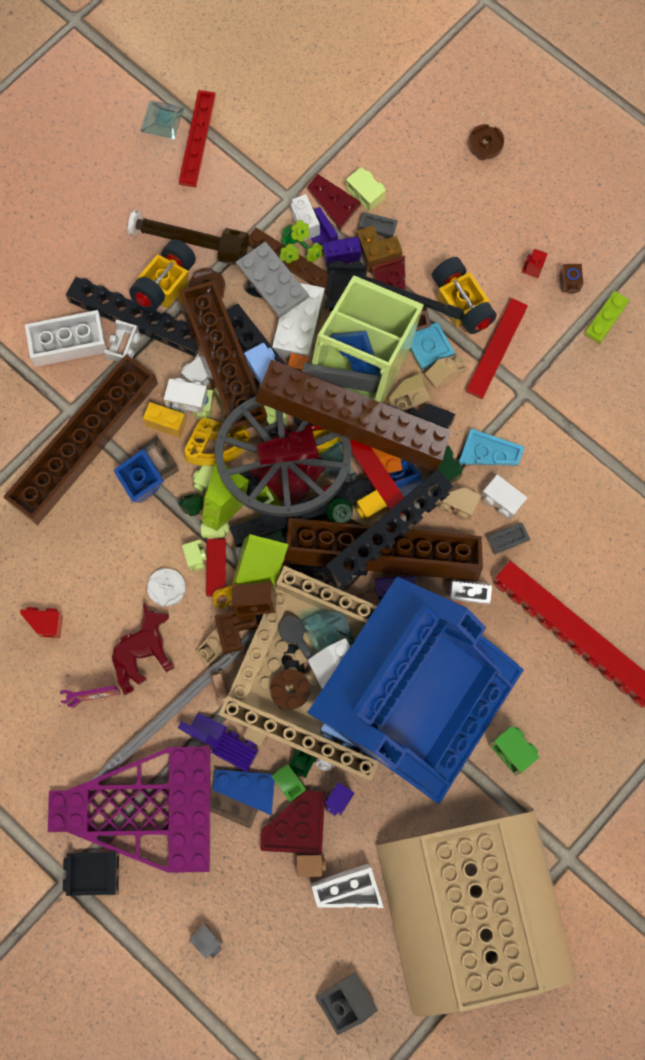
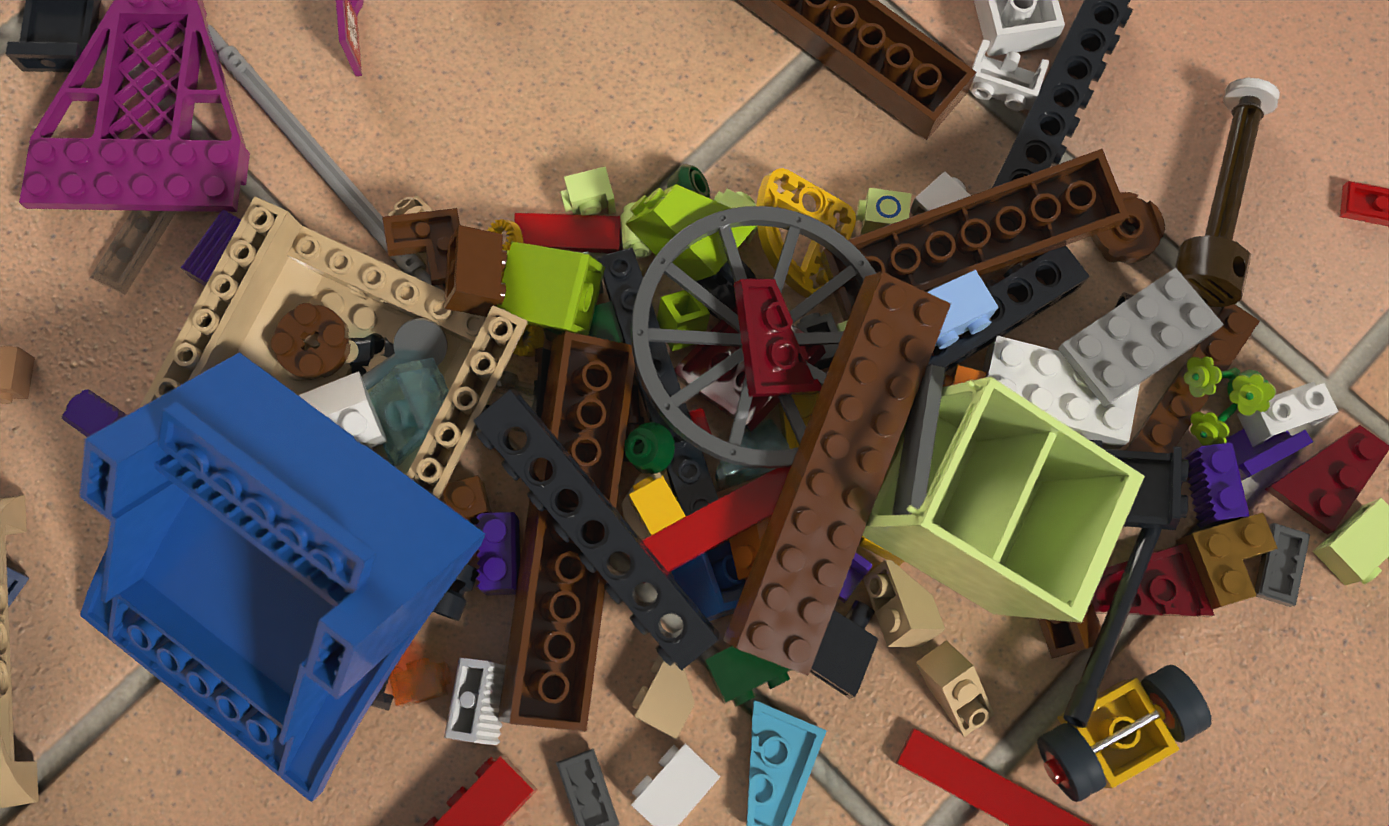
camera: 90 degrees right, 0 degrees up
(139, 477) = (735, 92): blue slope -> none
(140, 645) = (433, 106): dark red animal -> none
(160, 457) = (774, 133): clear smoke window -> none
(163, 277) = (1138, 139): brick -> none
(165, 420) = (851, 146): yellow brick -> none
(166, 587) = (537, 149): white tile -> none
(185, 396) = (894, 172): white brick -> none
(204, 730) = (265, 183): dark purple panel -> none
(219, 685) = (347, 227): medium nougat bar -> none
(246, 787) = (157, 285): blue wing -> none
(288, 782) = (150, 339): bright green brick -> none
(297, 826) = (77, 353): dark red plate -> none
(361, 342) = (980, 482): blue wing -> none
(430, 346) = (1010, 658): medium azure plate -> none
(514, 750) = (145, 766): bright green brick -> none

